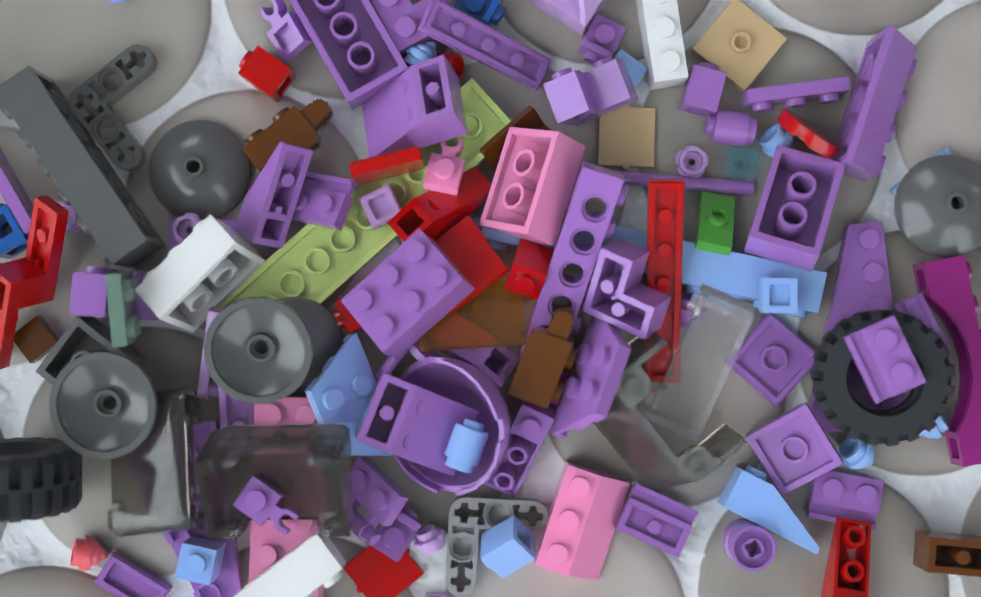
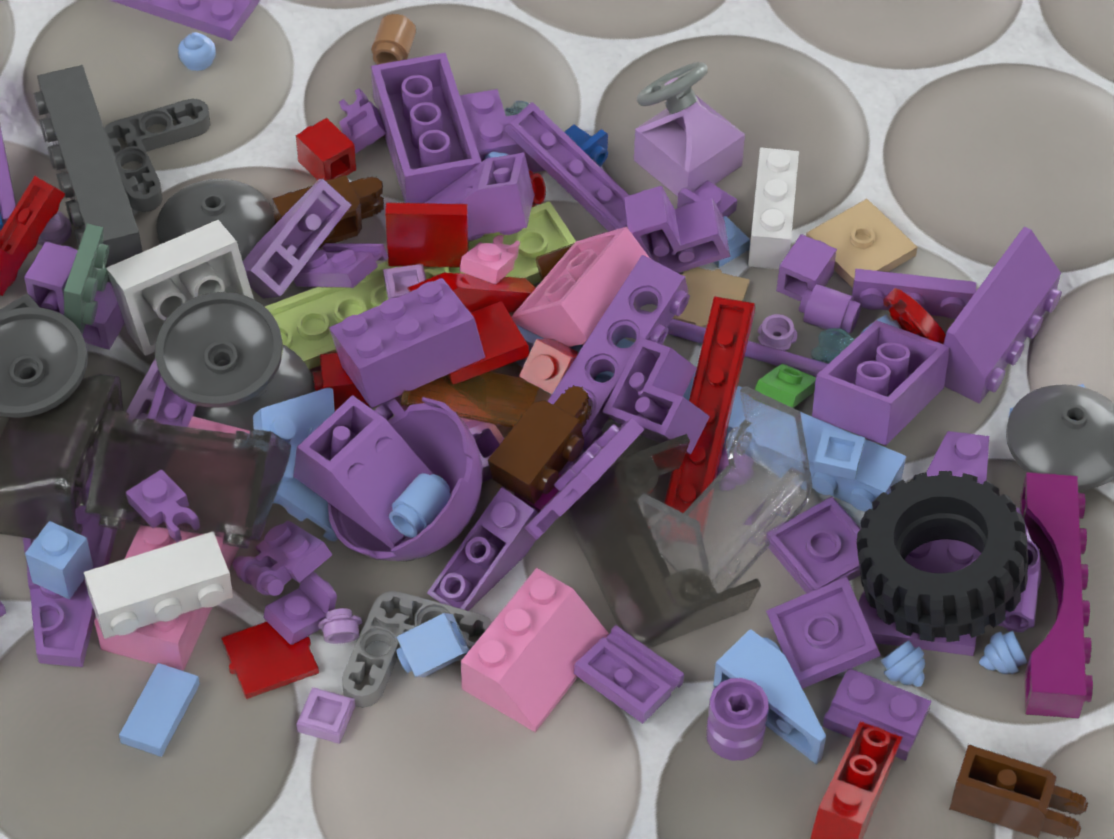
camera: 15 degrees right, 35 degrees down
(884, 359) = (942, 508): medium lavender plate -> none

